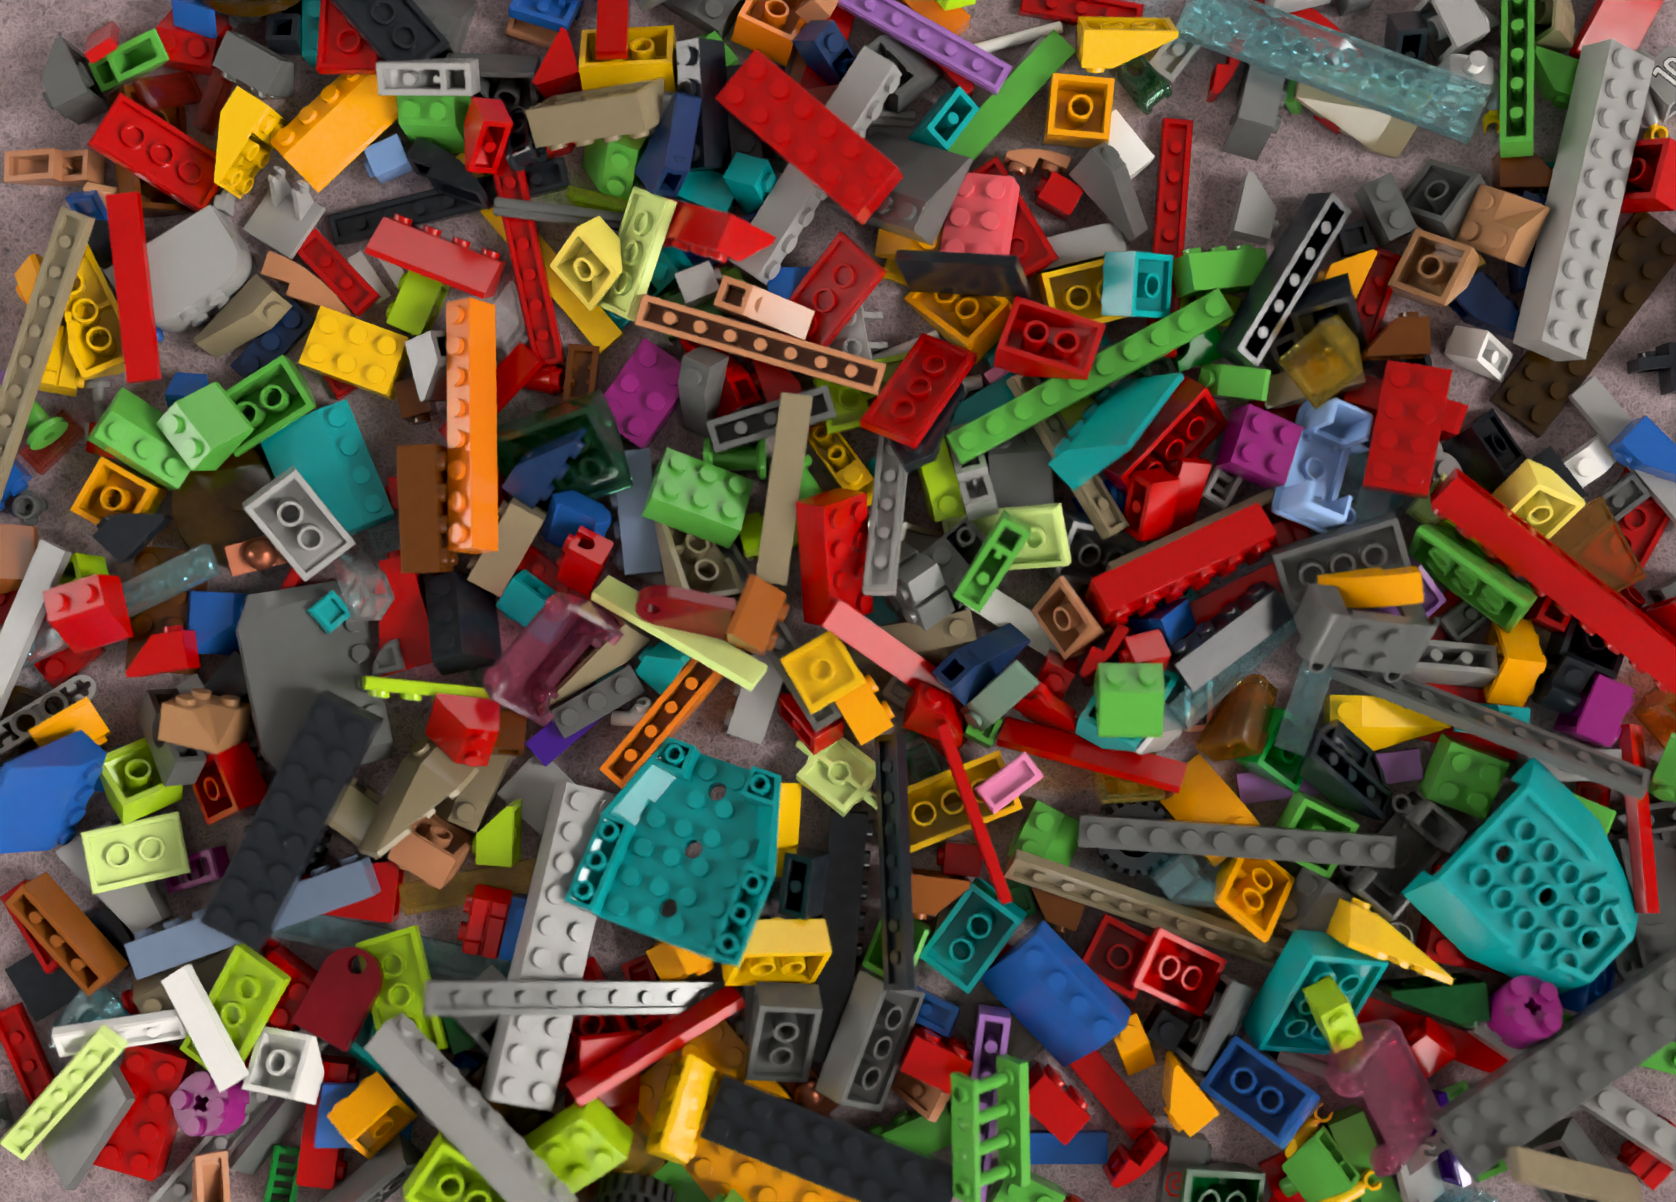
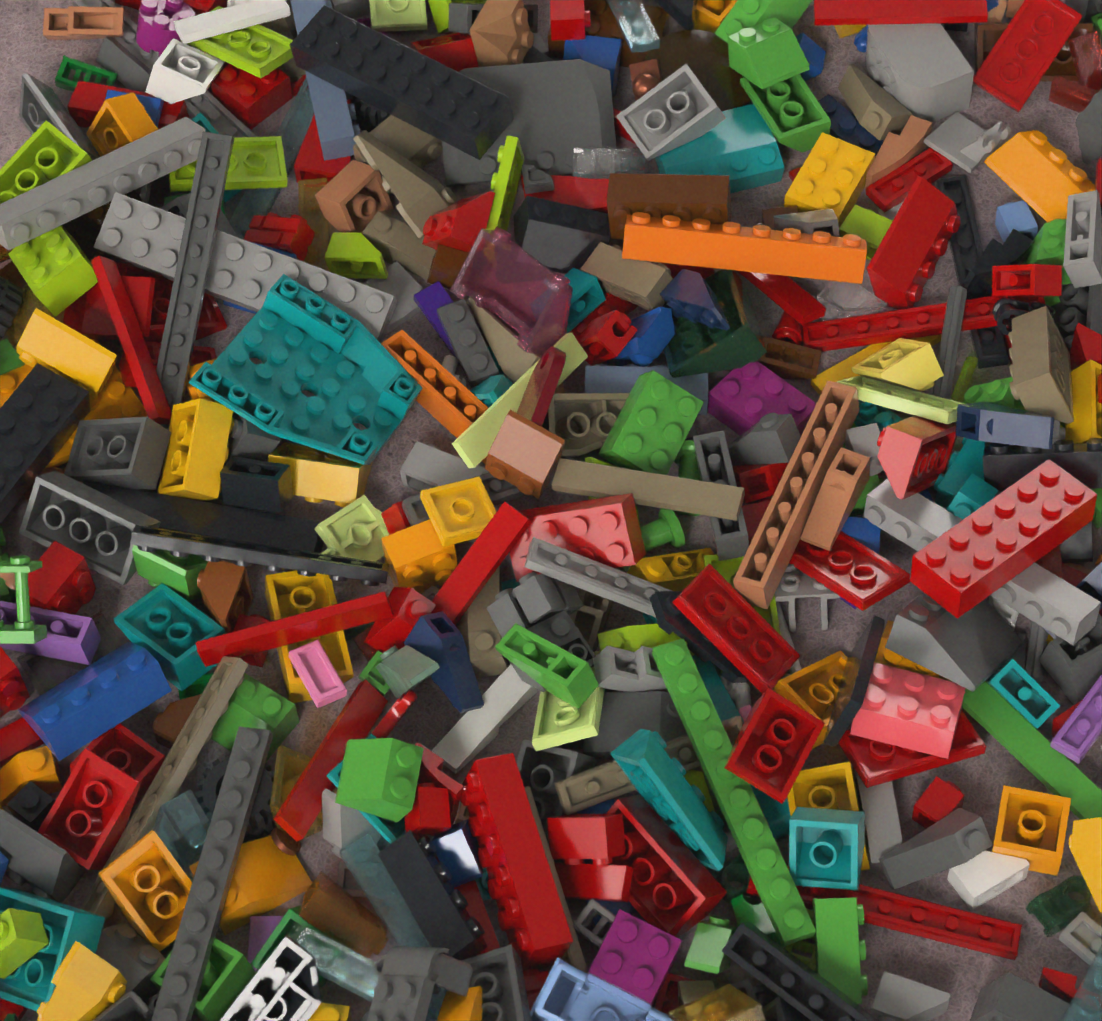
camera: 100 degrees right, 30 degrees down
(225, 202) = (985, 102): light grey tile -> none
(244, 141) = (1036, 106): yellow slope -> none
(329, 612) = (586, 134): teal tile -> none
(340, 997) = (235, 113): dark red tile -> none
(937, 1013) = (105, 596): blue plate -> none
(1024, 160) = (978, 782): nougat slope -> none
(1056, 673) = (421, 728): red slope -> none
(1067, 620) = (464, 750): nougat slope -> none

